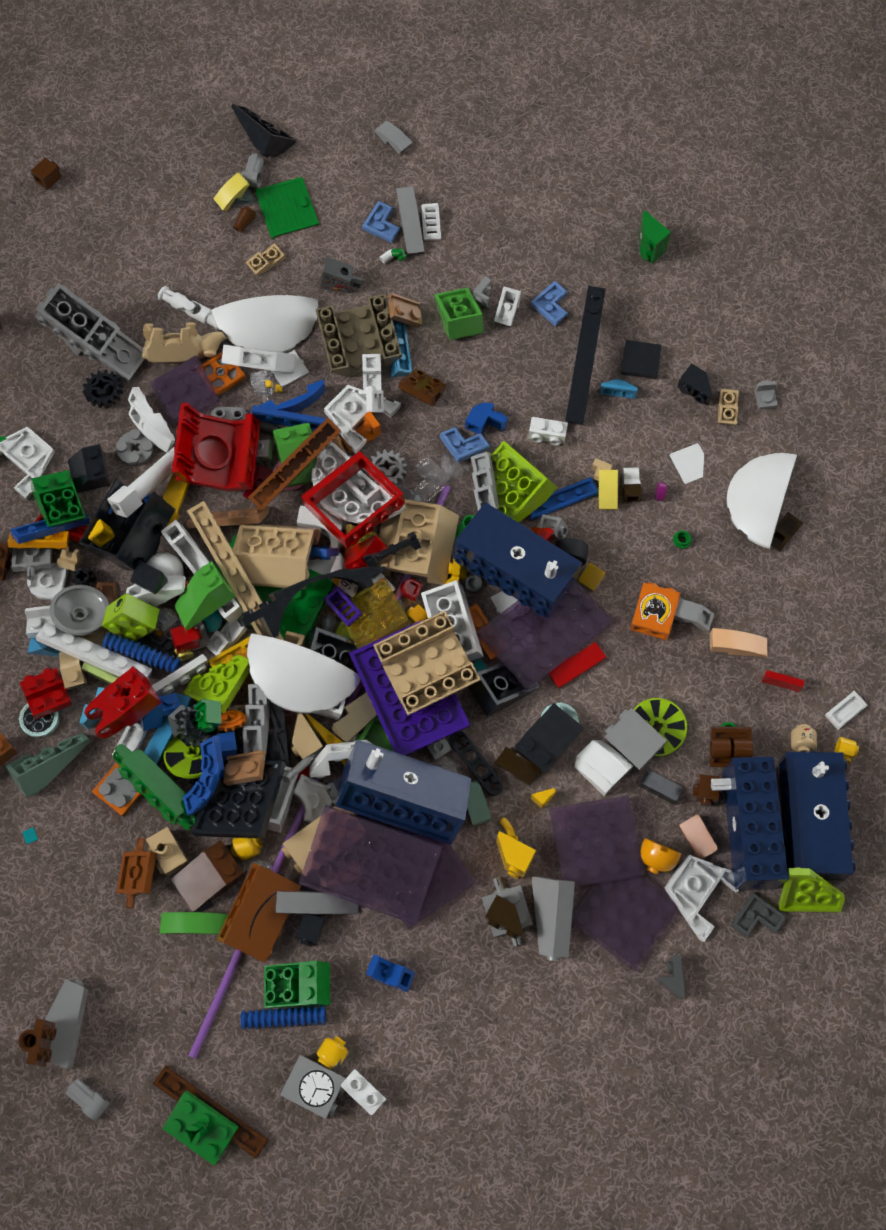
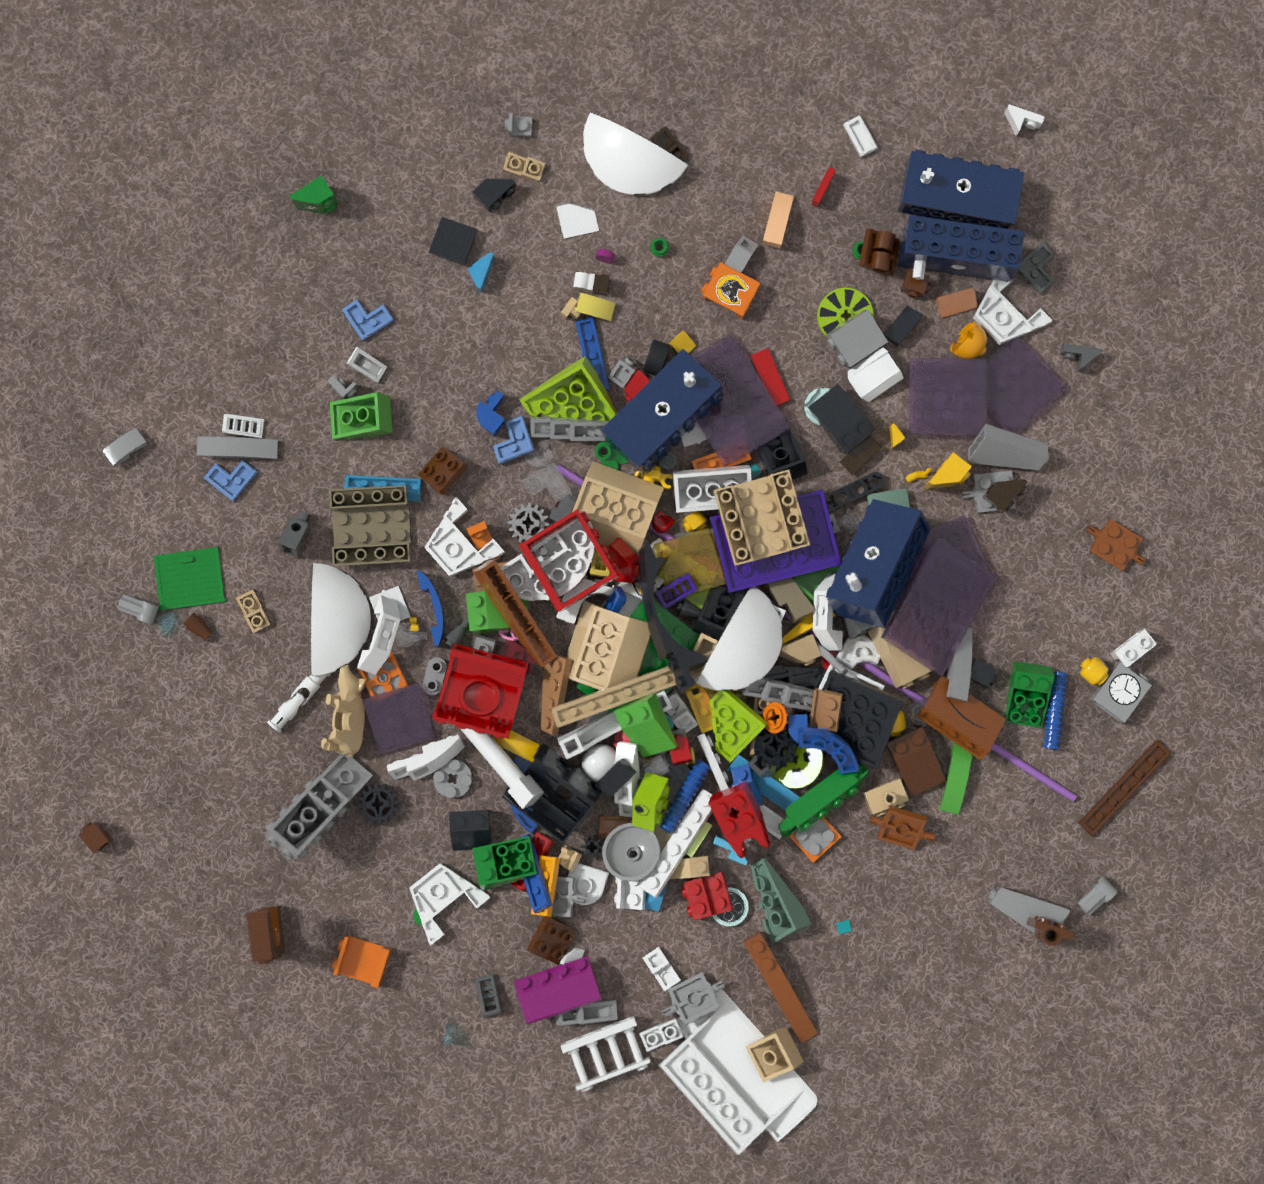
camera: 80 degrees left, 15 degrees up
(101, 533) = (554, 819): yellow slope -> none
(200, 1127) = (1138, 798): green plate -> none
(208, 714) = (772, 735): green brick -> none
(231, 190) = (161, 635): light yellow slope -> none
(262, 135) = (93, 589): black wedge -> none
(285, 418) = (456, 614): blue tile -> none
(371, 370) = (416, 520): white slope -> none
(373, 559) = (628, 531): black piece -> none
(374, 399) = (452, 522): white bracket -> none
(387, 256) = (272, 473): arm -> none
(390, 973) = (1034, 607): blue brick -> none
(404, 310) = (350, 472): medium nougat plate -> none
(475, 1055) = (1116, 544): none -> dark orange plate
(547, 431) = (514, 353): white bracket -> none
(585, 355) = (418, 285): black slope -> none
(803, 738) = (883, 183): tan head -> none
(809, 893) = (1029, 215): lime plate -> none
(848, 748) = (900, 147): yellow plate -> none

